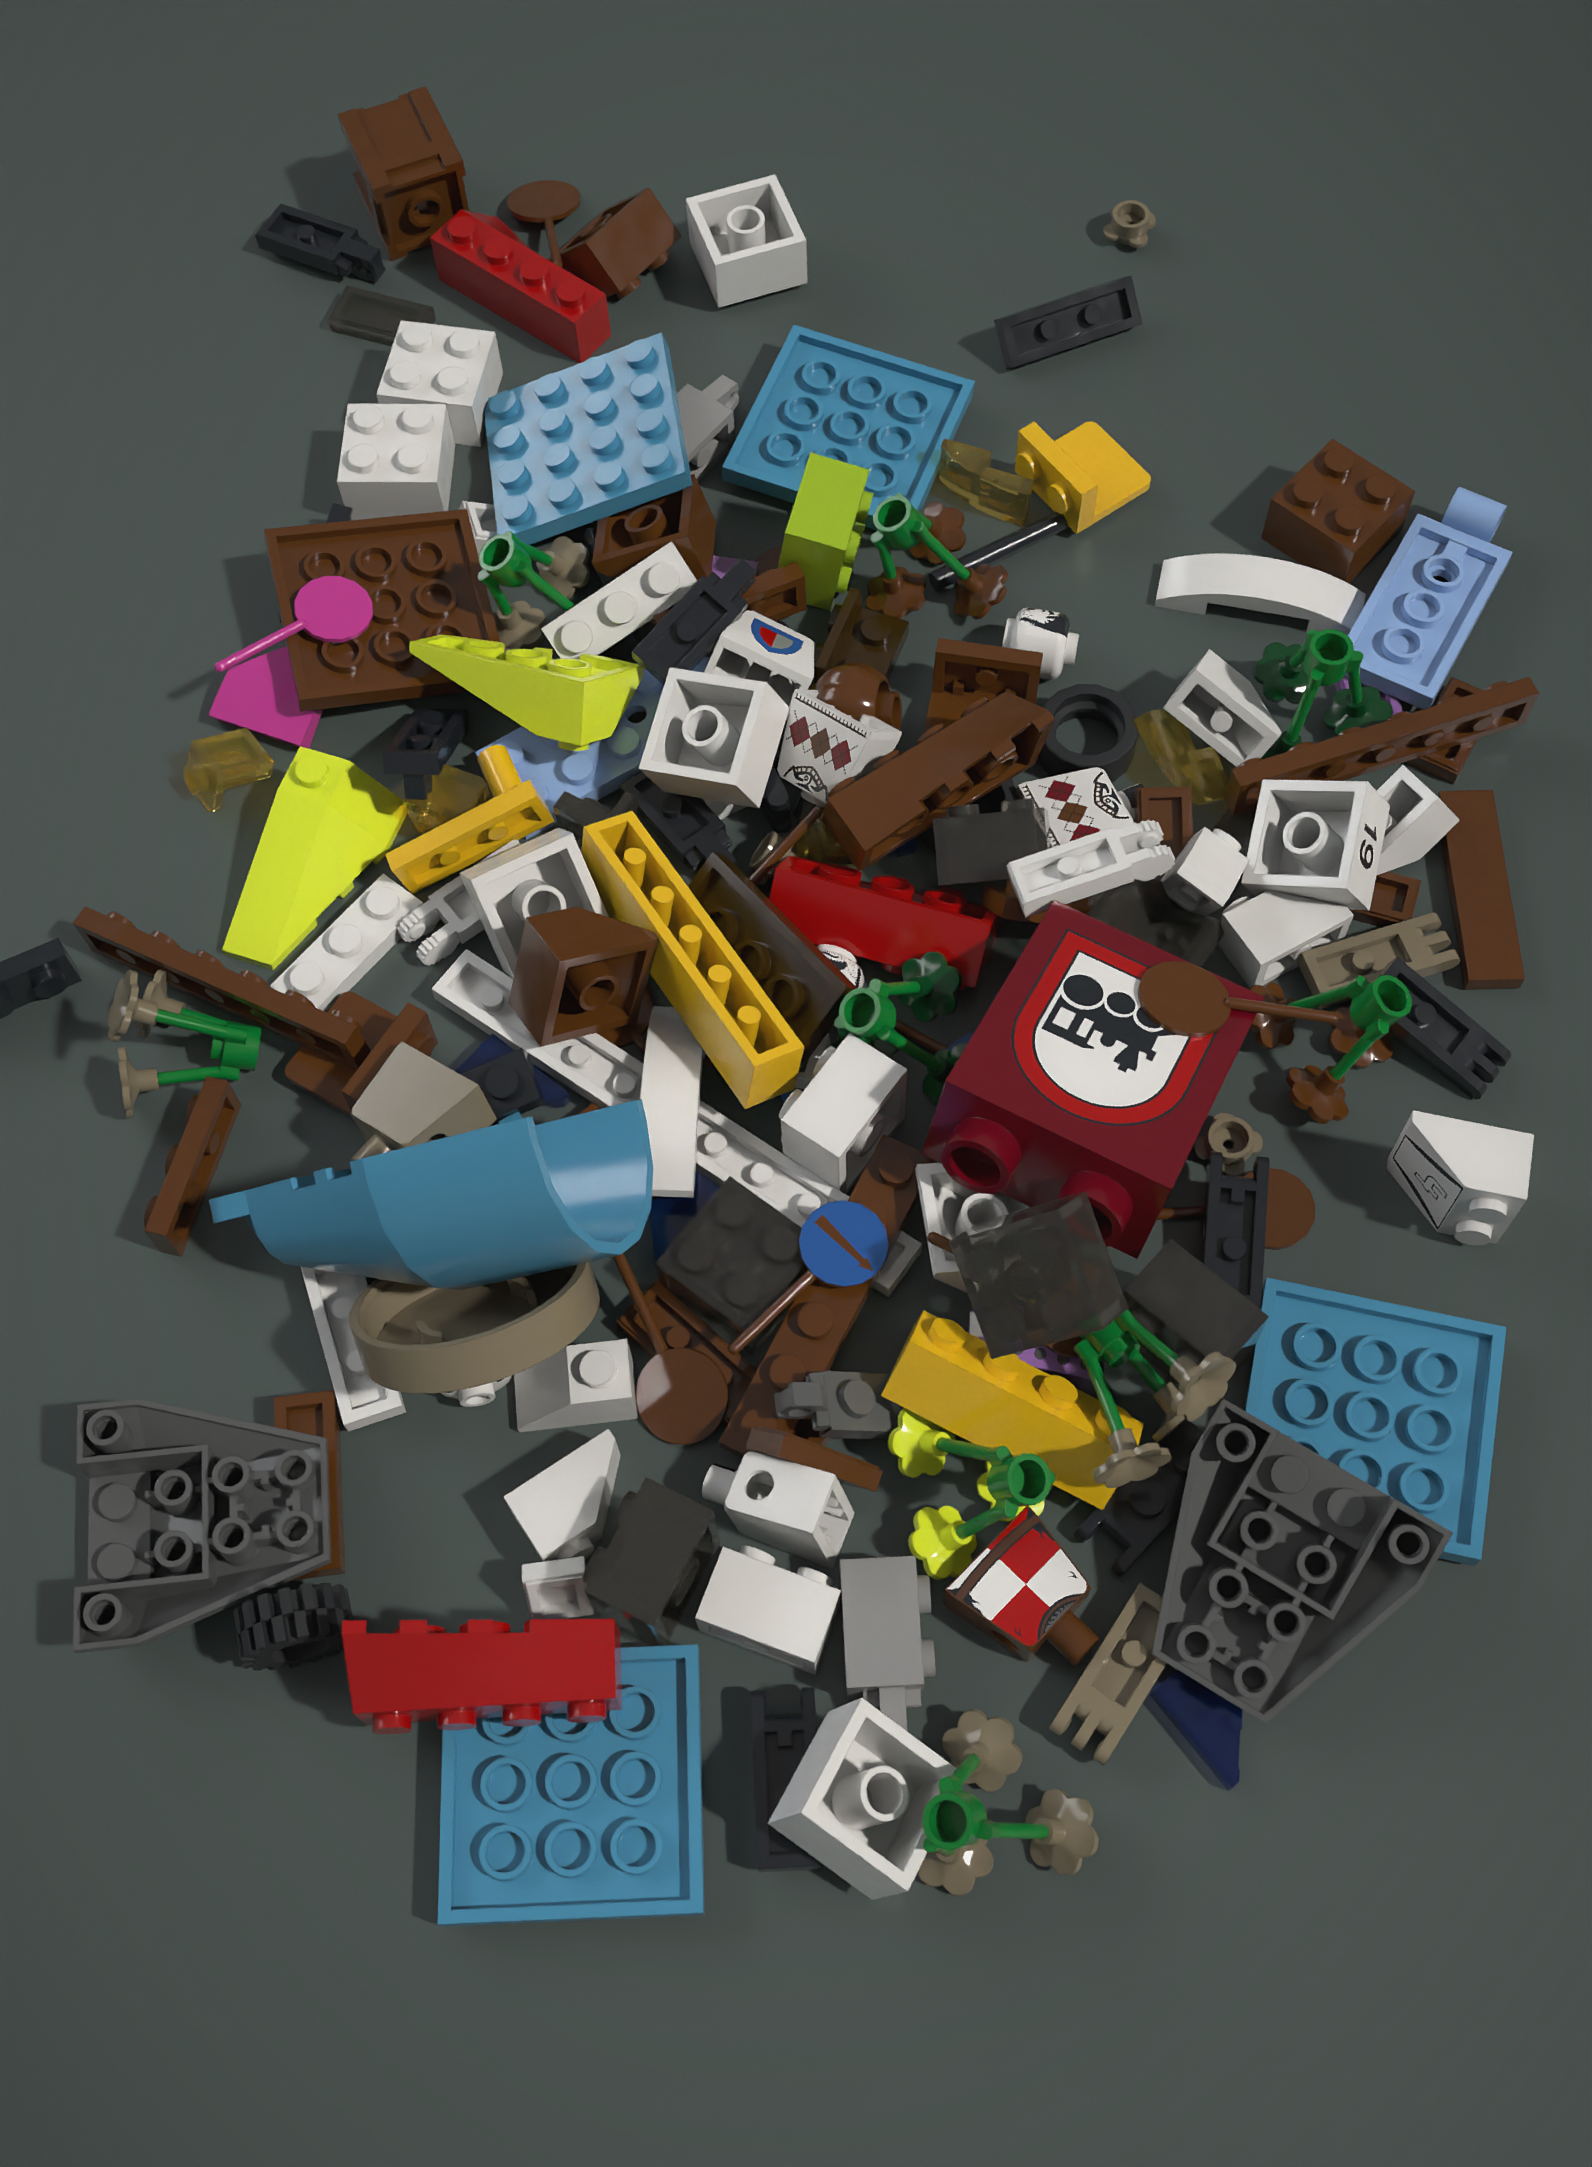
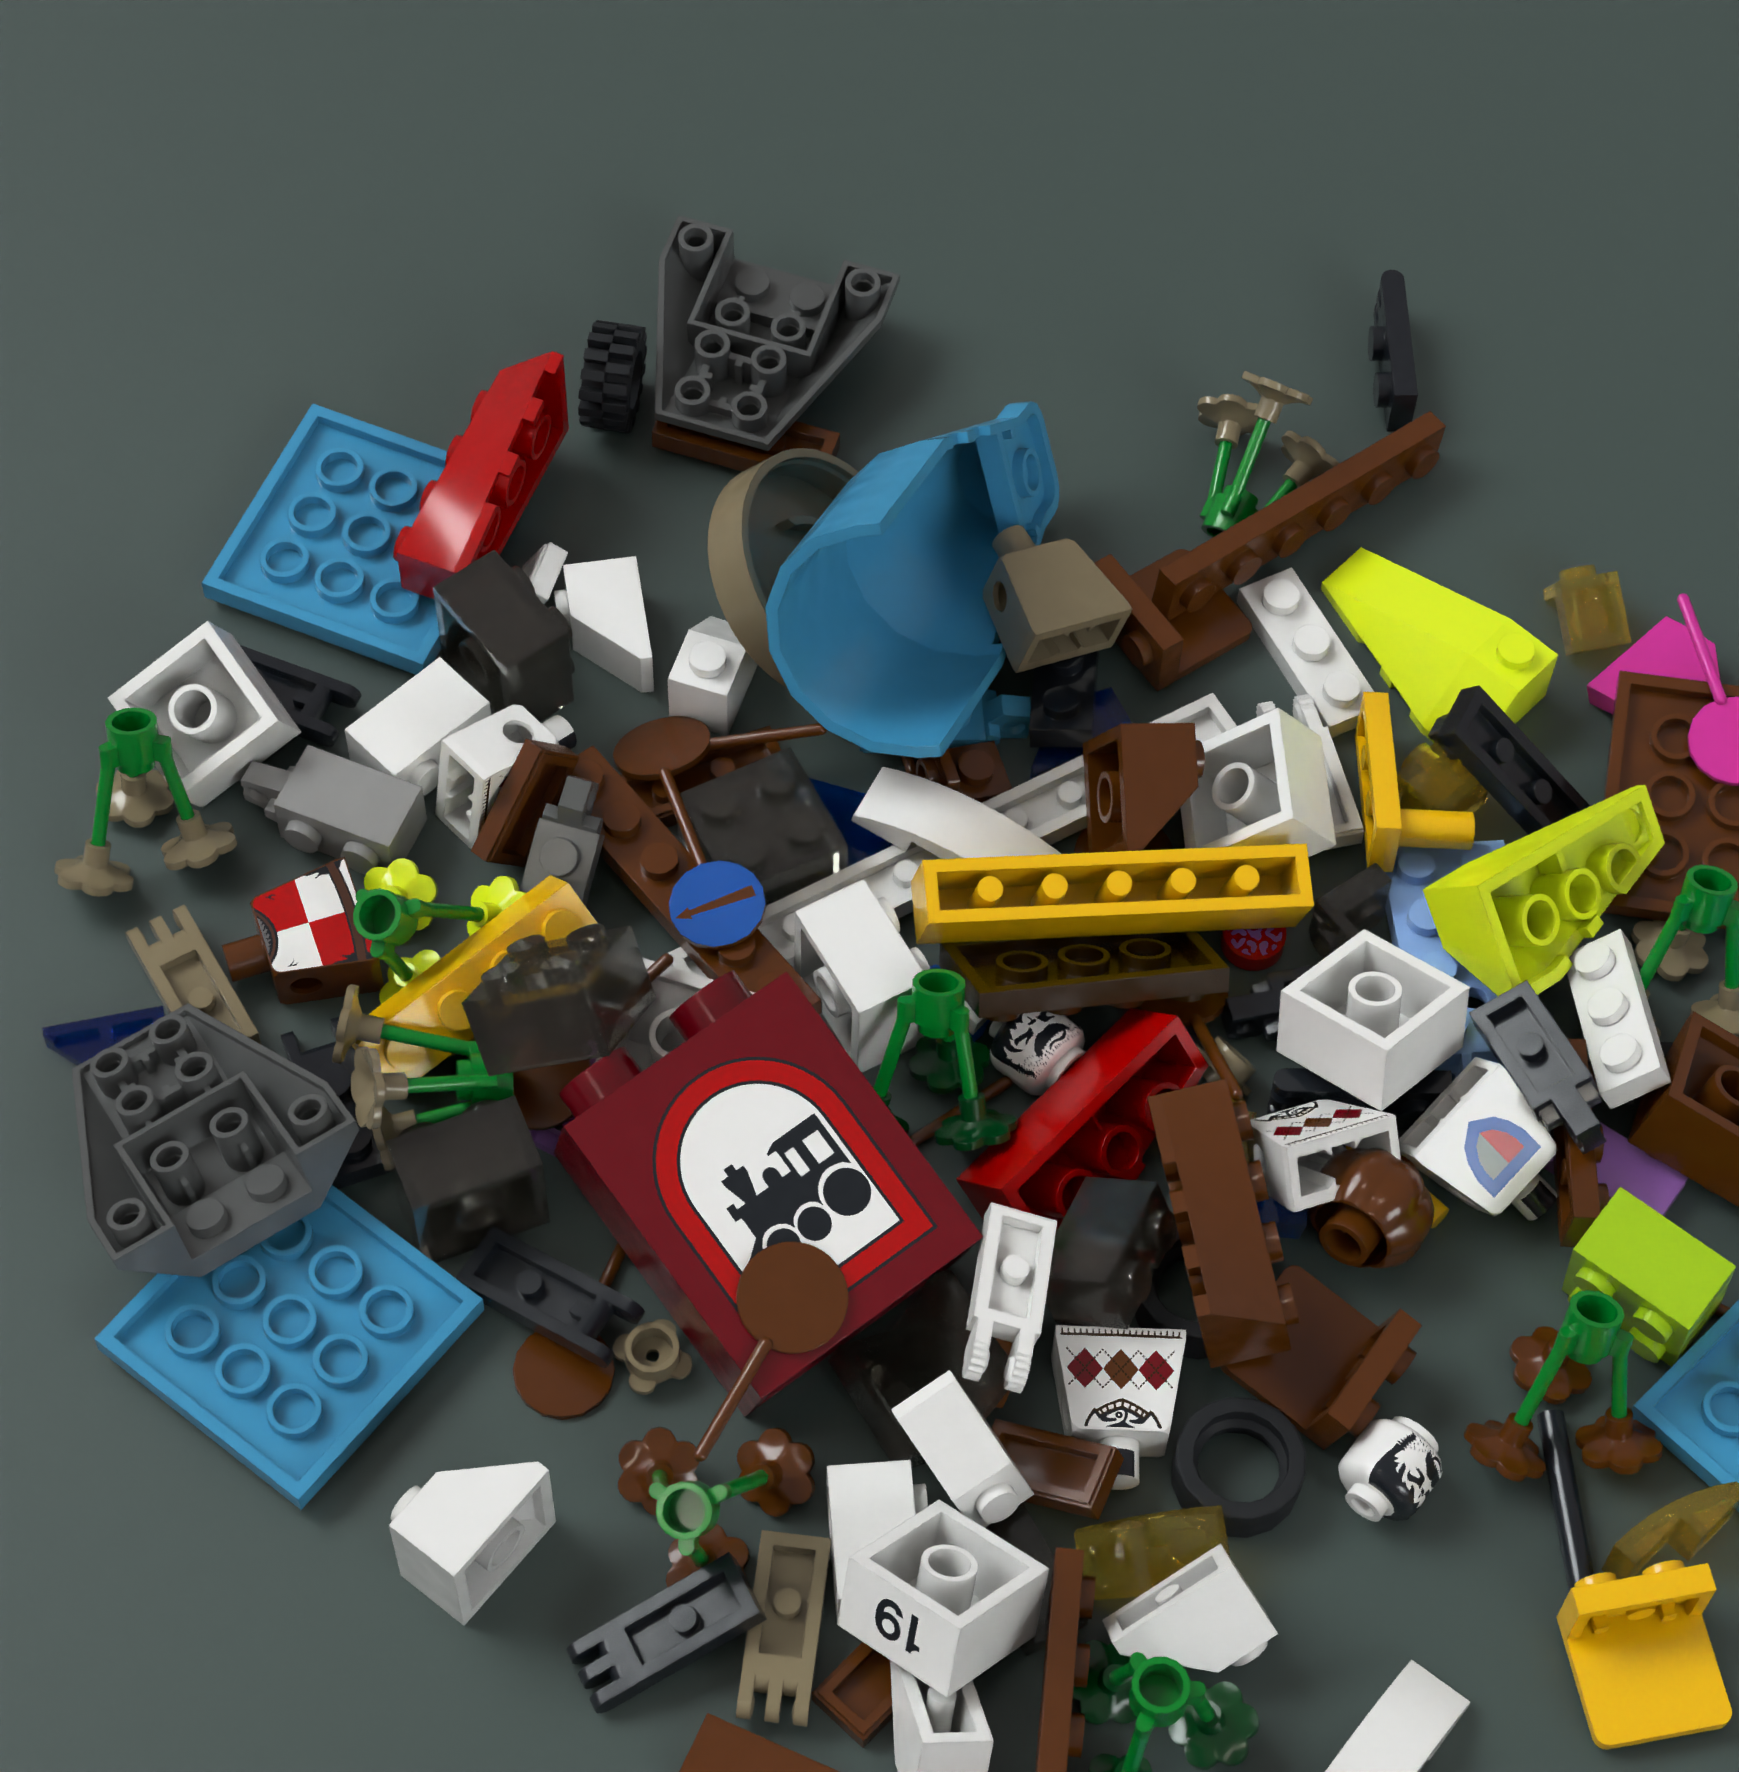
camera: 110 degrees right, 5 degrees down
(191, 1166) = (1116, 445): reddish brown plate -> none
(860, 637) = (1476, 1278): dark brown bracket -> none

